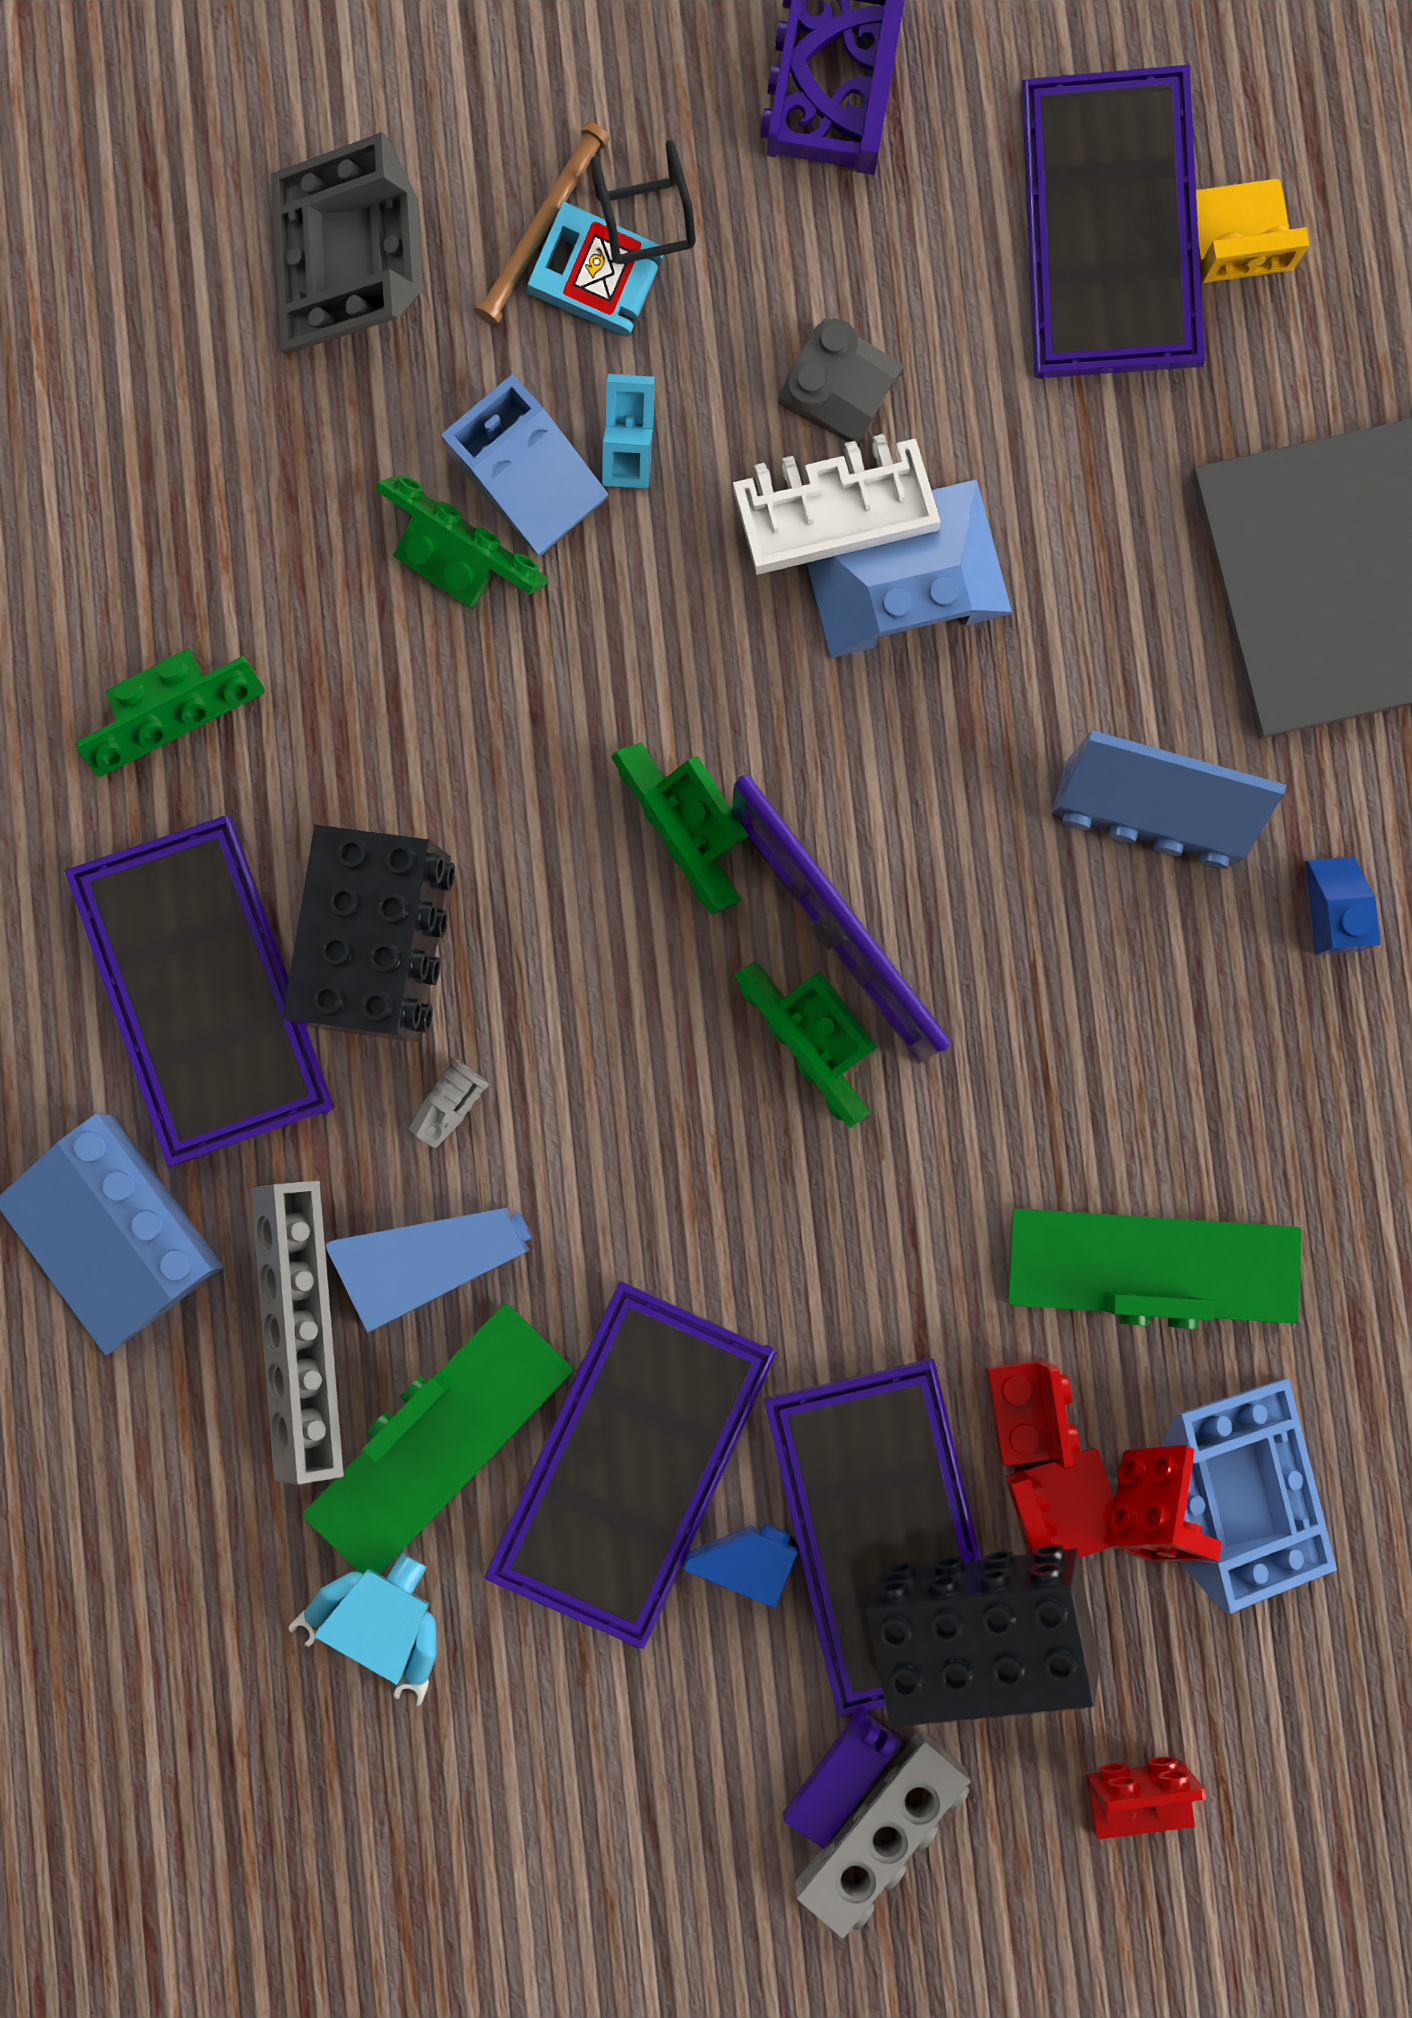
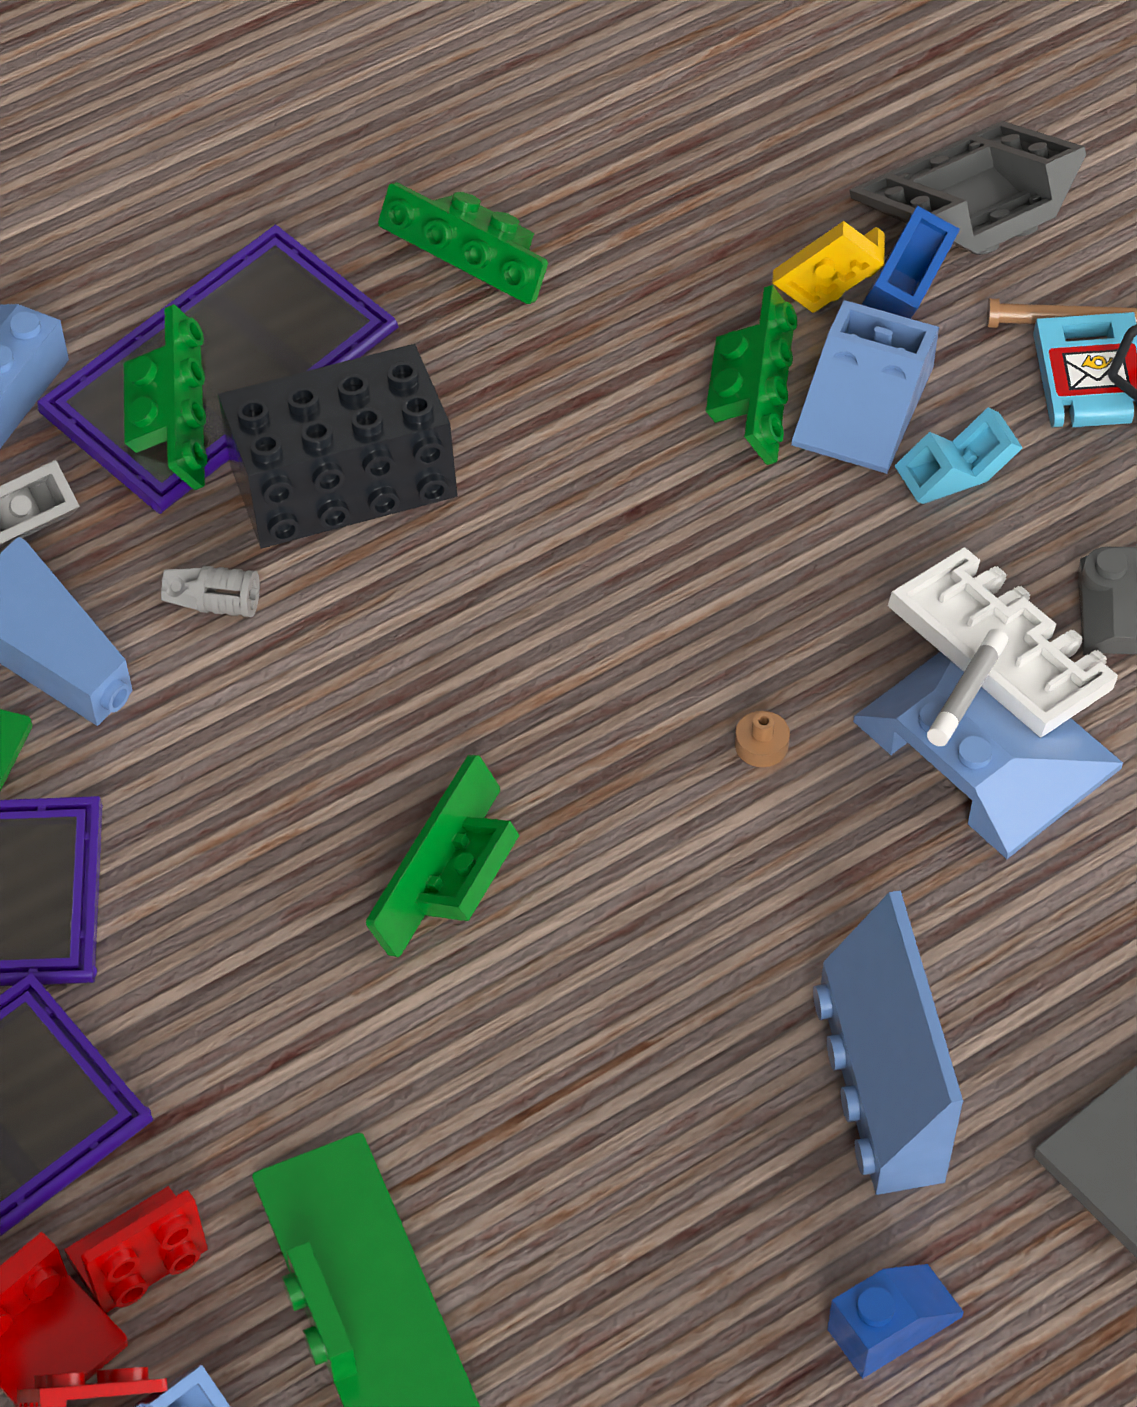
camera: 65 degrees right, 30 degrees down
(229, 1056) = (166, 398): none -> green bracket
(386, 417) = (831, 266): none -> yellow bracket
(423, 356) = (911, 264): none -> blue slope
(689, 818) = (603, 659): green bracket -> none
(812, 747) = (762, 739): none -> medium nougat tile
(836, 923) = (564, 795): dark purple door -> none
(888, 563) = (967, 687): none -> light grey bar

